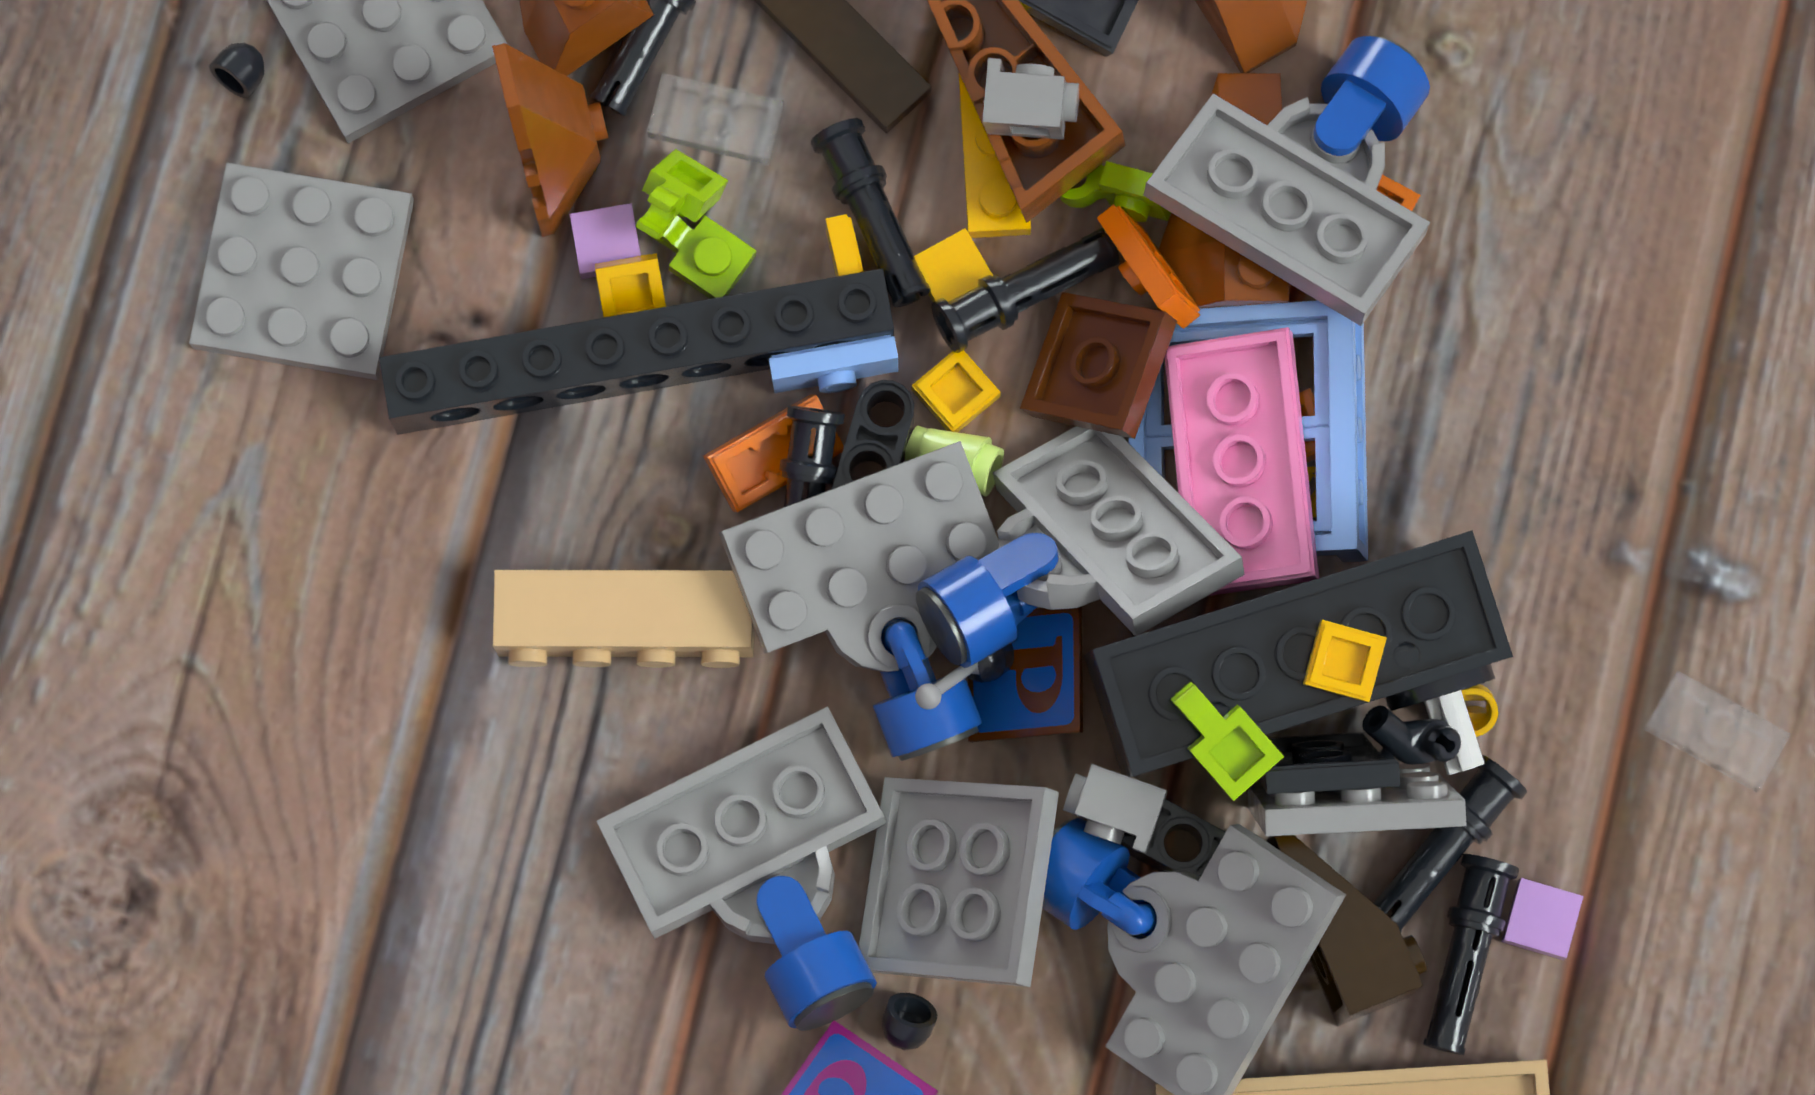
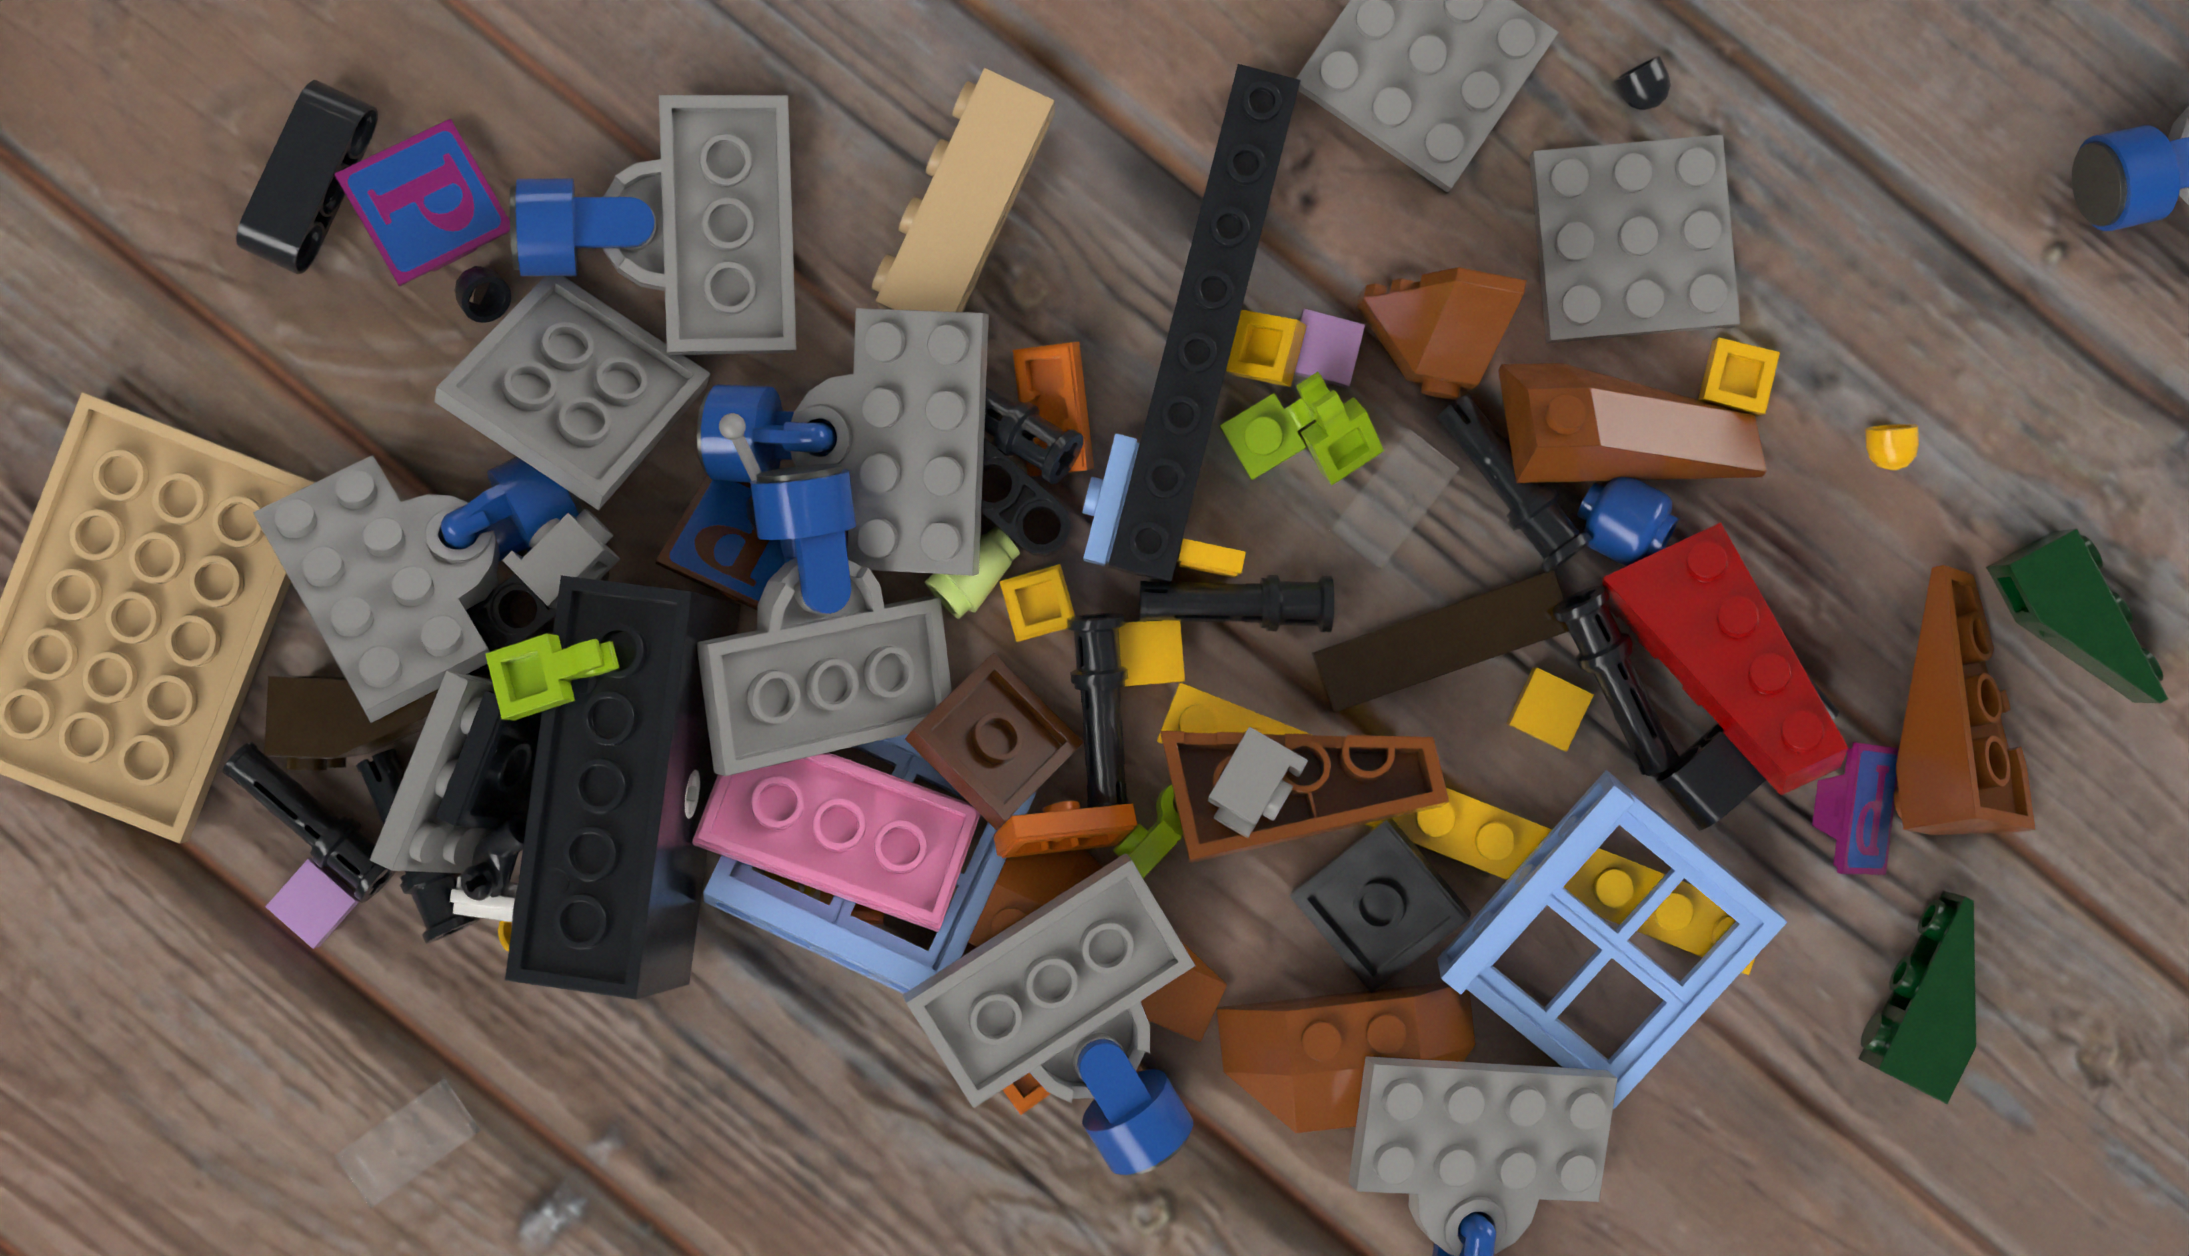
camera: 115 degrees right, 10 degrees up
(1344, 661) = (569, 820): yellow tile -> none

